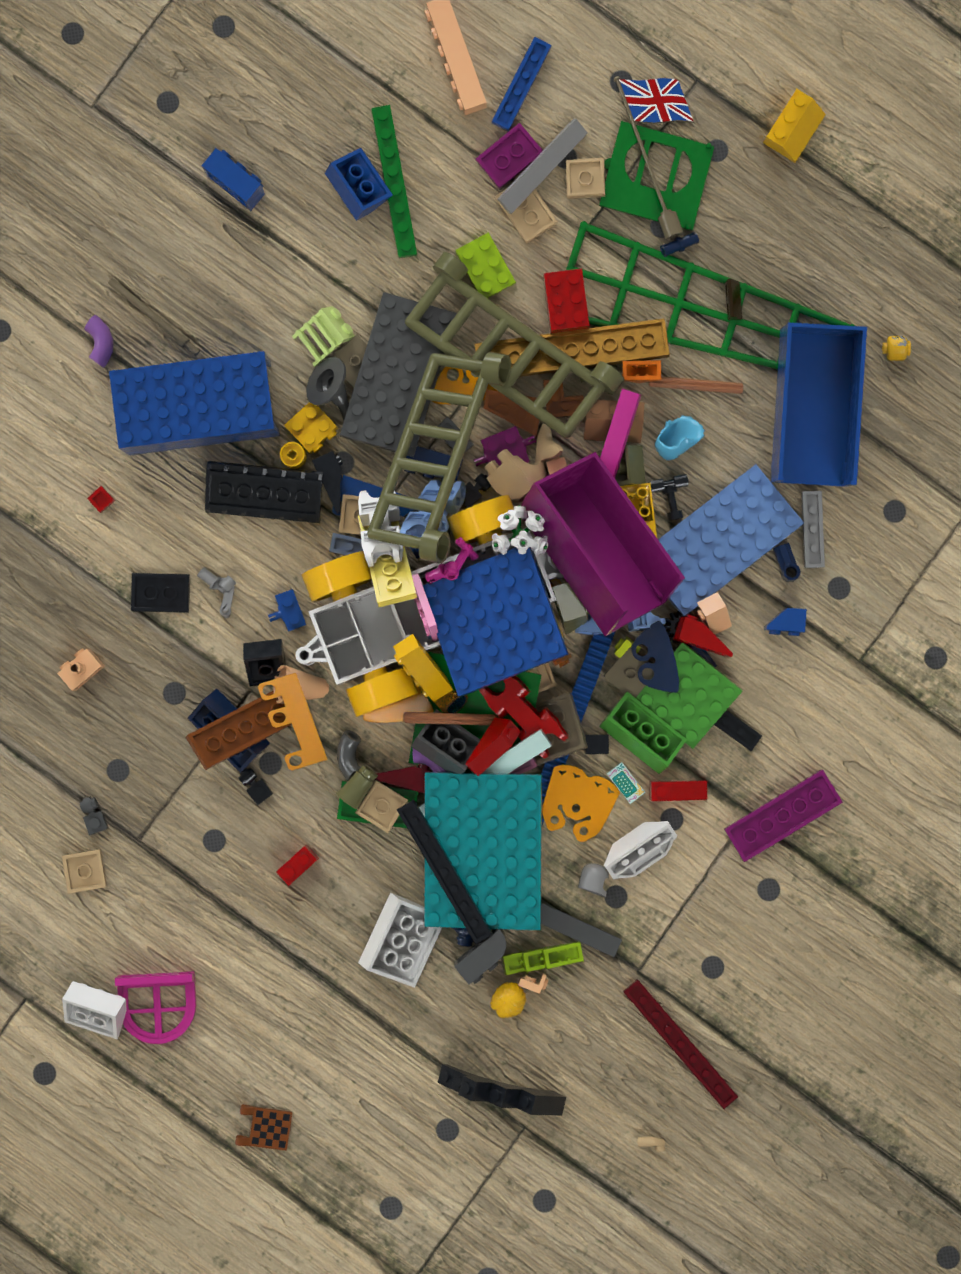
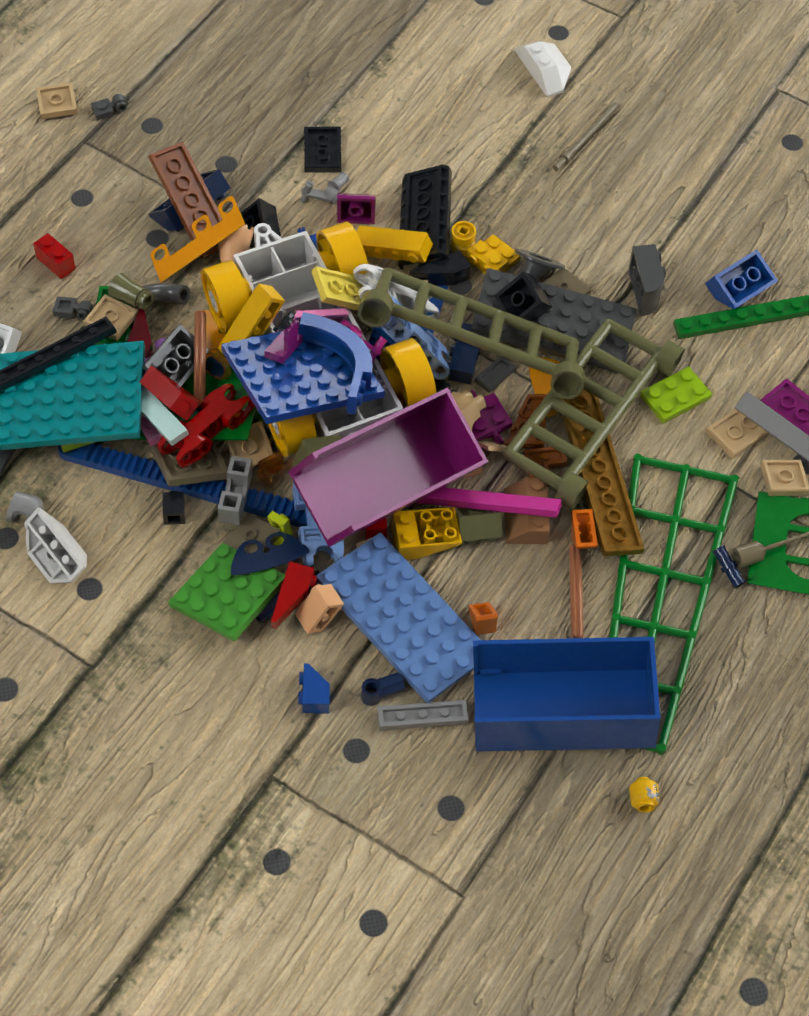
camera: 85 degrees right, 30 degrees down
(51, 349) = (546, 66): none -> white wedge
(80, 669) = (247, 91): light nougat brick -> none
(101, 499) = (408, 102): red plate -> none
(102, 340) = (557, 98): medium lavender cylinder -> none
(192, 403) = (503, 146): blue piece -> none
(234, 178) = (727, 182): blue brick -> none
(246, 560) = (356, 208): none -> magenta slope
(259, 790) = (131, 228): black plate -> none
(303, 527) = (395, 243): none -> yellow brick
(331, 326) = (590, 260): yellowish green plate -> none
(354, 276) = (646, 277): none -> dark grey brick
(359, 850) = (68, 306): none -> dark grey plate
(387, 402) = (523, 298): none -> black slope
(468, 636) = (286, 341): none -> magenta piece
(470, 576) = (346, 344): none -> arch
(519, 538) = (385, 382): white plant -> none
(566, 300) = (650, 457): red brick -> none
(582, 790) = (122, 497): light orange piece -> none
(592, 686) = (238, 483): none -> light grey arch
(625, 783) = (131, 540): tile -> none
(643, 733) = (186, 549): bright green slope -> none
(670, 487) = (458, 569): black bar -> none
(678, 437) = (515, 570): medium azure piece -> none
(678, 790) = (121, 587): red slope -> none
(719, 470) = (483, 618): none -> orange slope
(733, 300) = (675, 618): dark brown slope -> none
(738, 730) = (189, 648): black tile -> none
(783, 815) = (90, 697): magenta plate -> none

